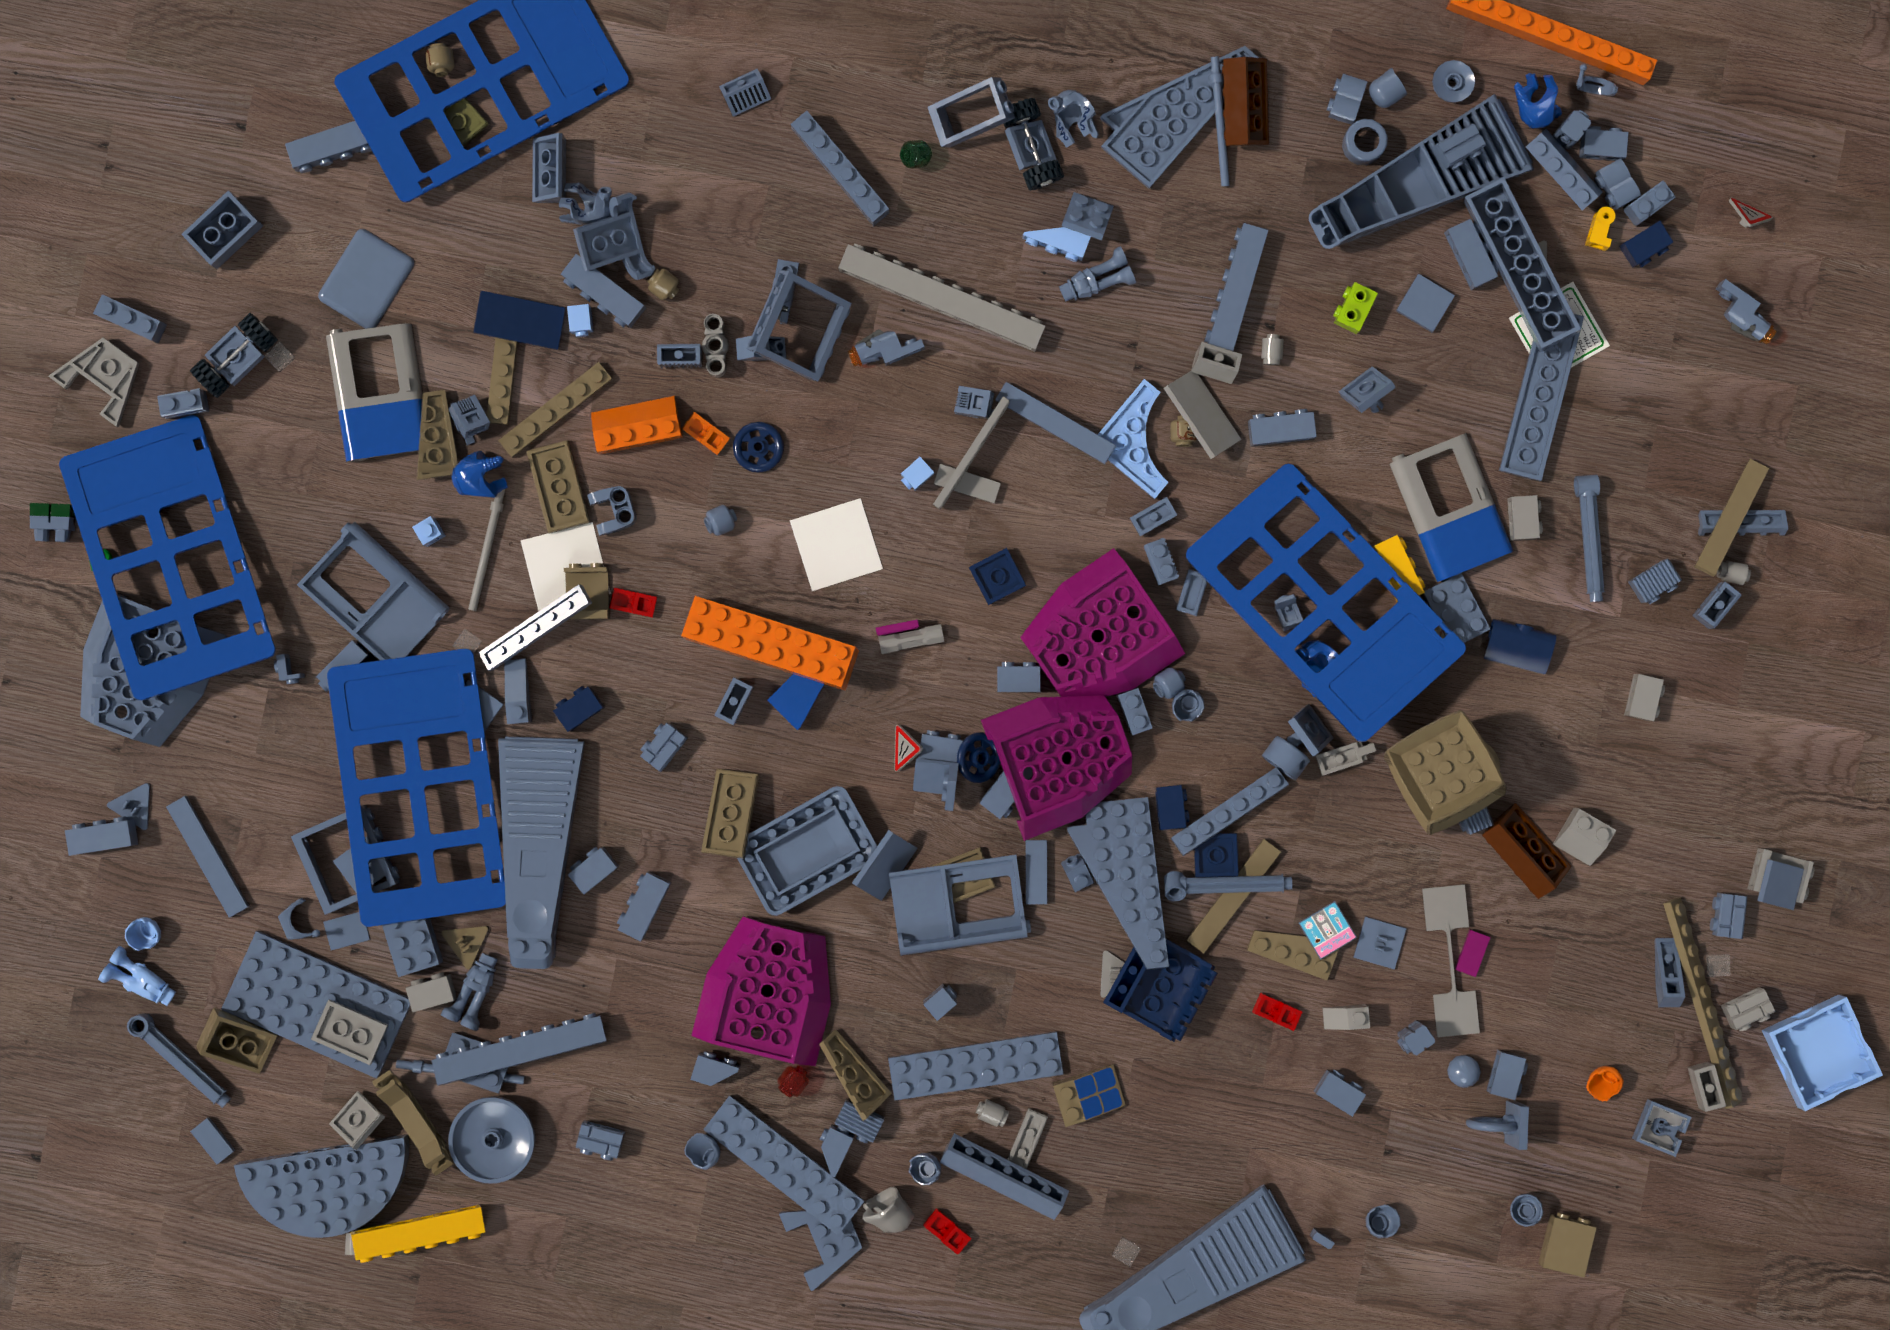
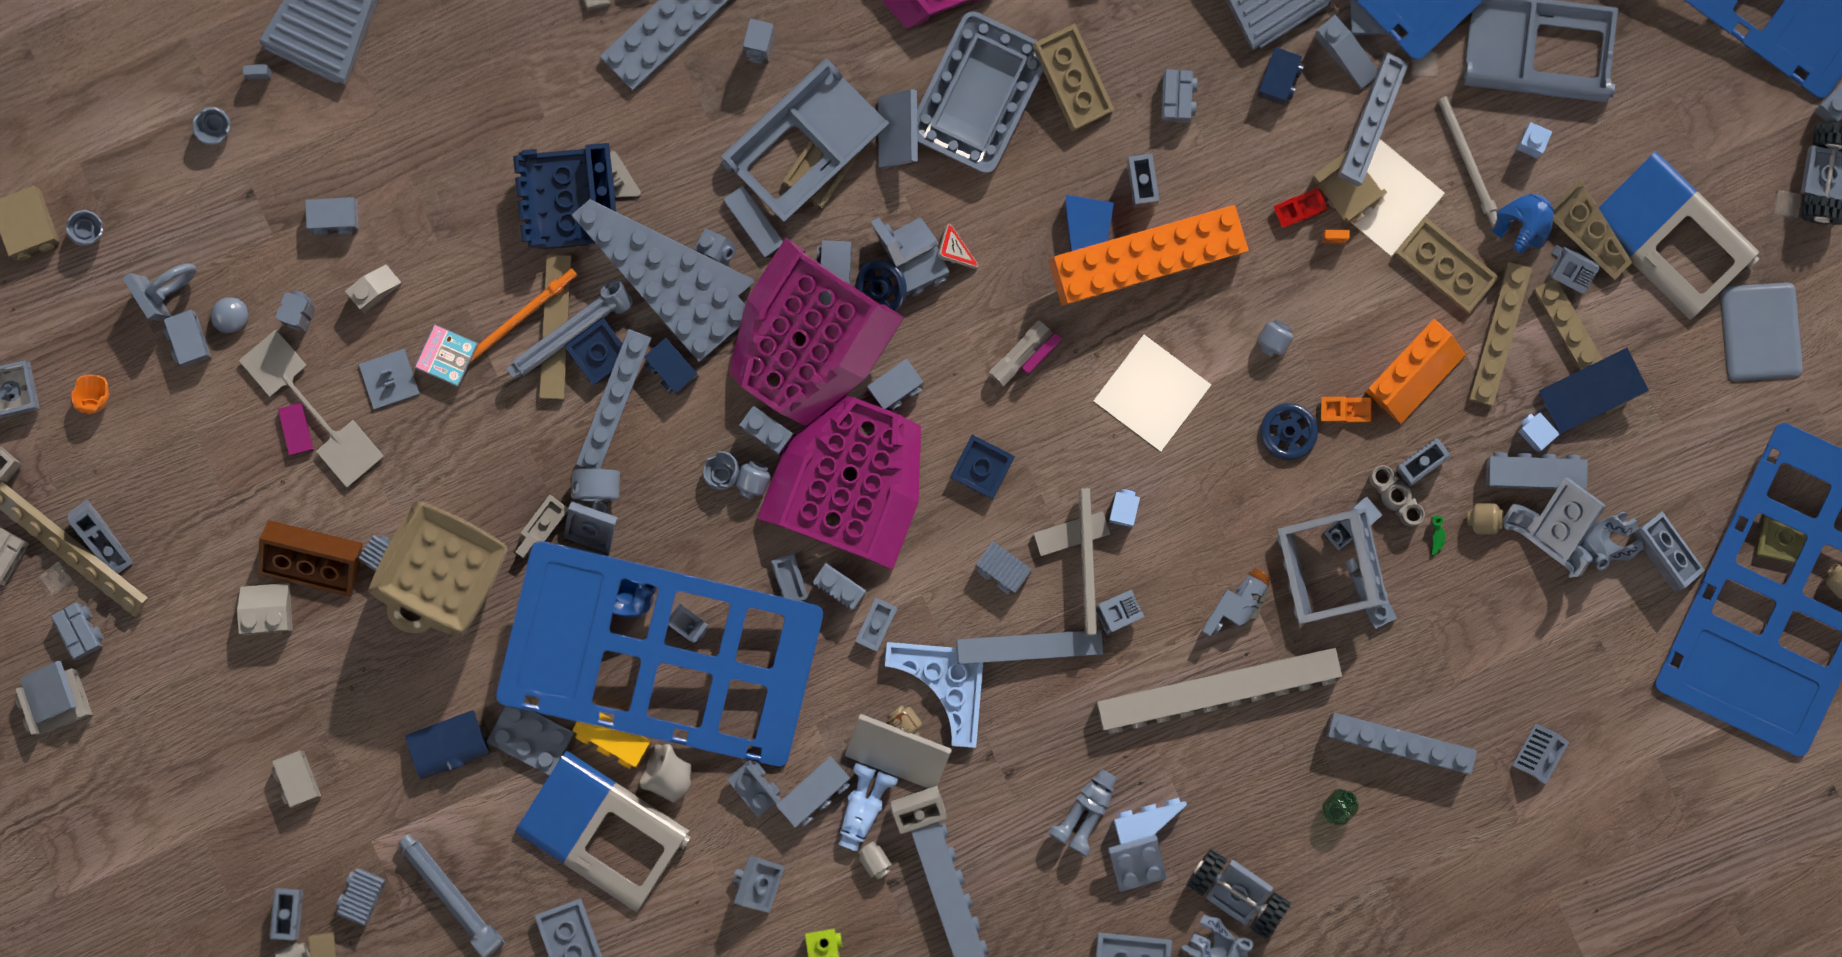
camera: 150 degrees right, 5 degrees down
(618, 508) = (1377, 282): sand blue piece -> none
(622, 562) = (1336, 236): none -> orange tile
(706, 296) = (1438, 536): none -> green piece
(942, 123) = (1337, 856): sand blue window -> none
(1034, 493) = (1003, 568): none -> sand blue brick
(1088, 1095) = (563, 52): slope -> none
(1214, 924) = (555, 287): none -> orange bar
(1256, 391) = (862, 811): none -> light blue piece
(1277, 1011) = (441, 249): red slope -> none
(1291, 951) = (466, 313): dark tan wing -> none
(1322, 461) = (754, 788): none -> sand blue bracket
(1378, 514) = (666, 774): none -> light grey piece
(1524, 517) = (526, 869): light grey brick -> none

